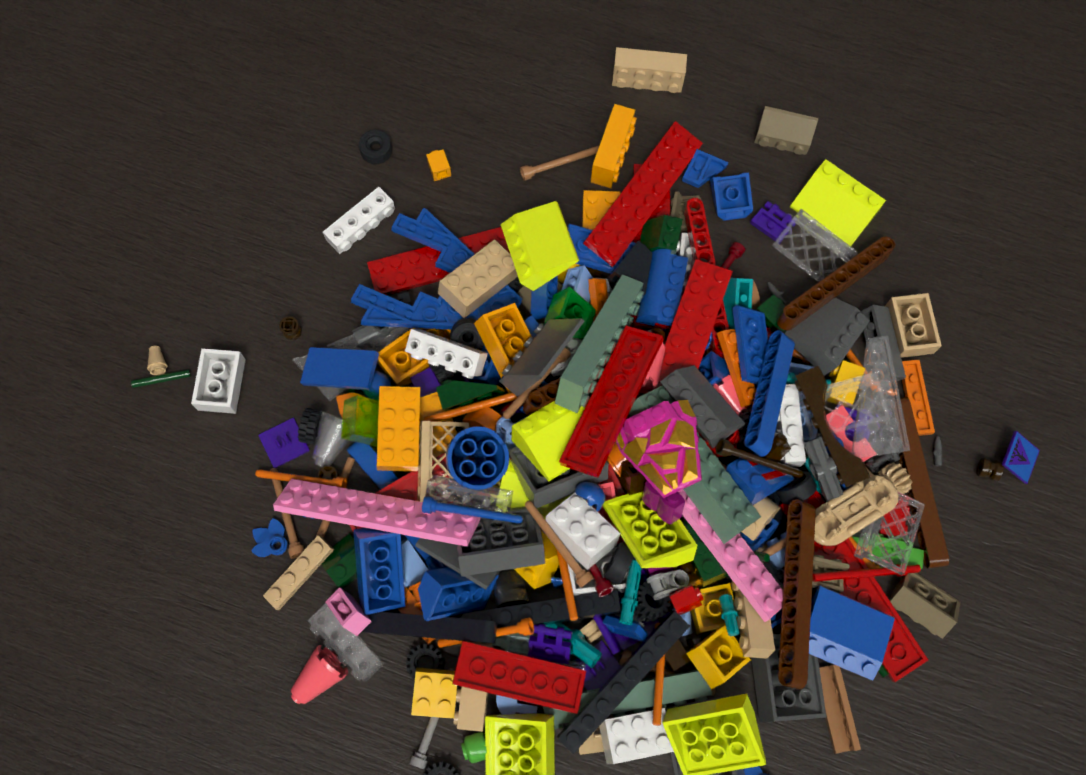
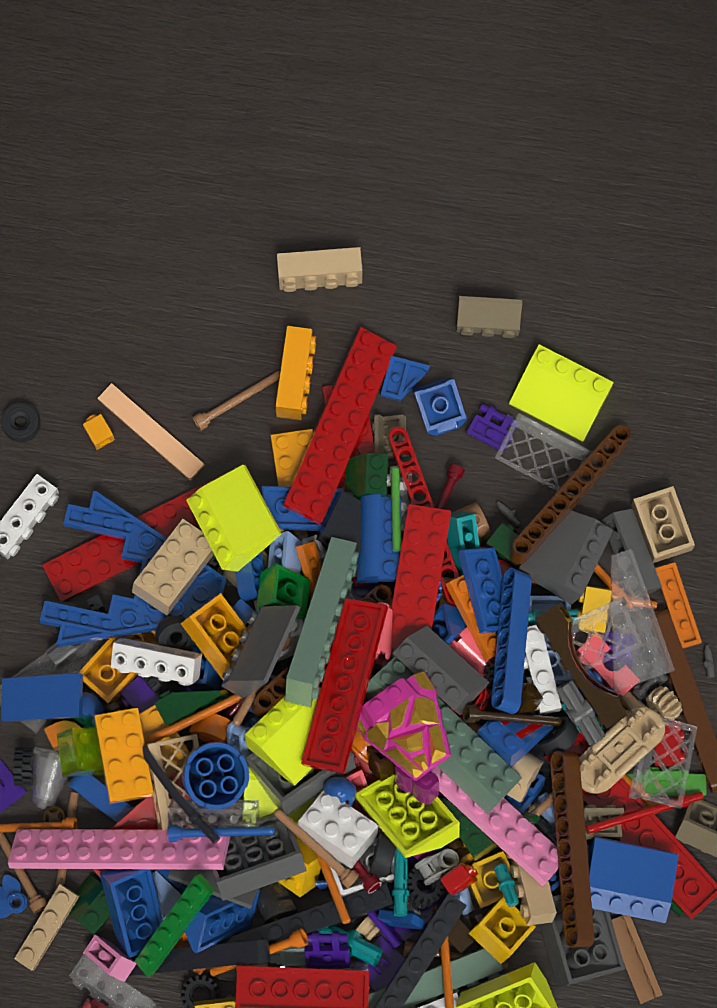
camera: 10 degrees left, 5 degrees up
(412, 590) = (174, 925): none -> green plate
(450, 492) = (194, 817): none -> black sword
(483, 174) = (151, 432): none -> light nougat tile
(682, 265) = (396, 523): none -> bright green bar

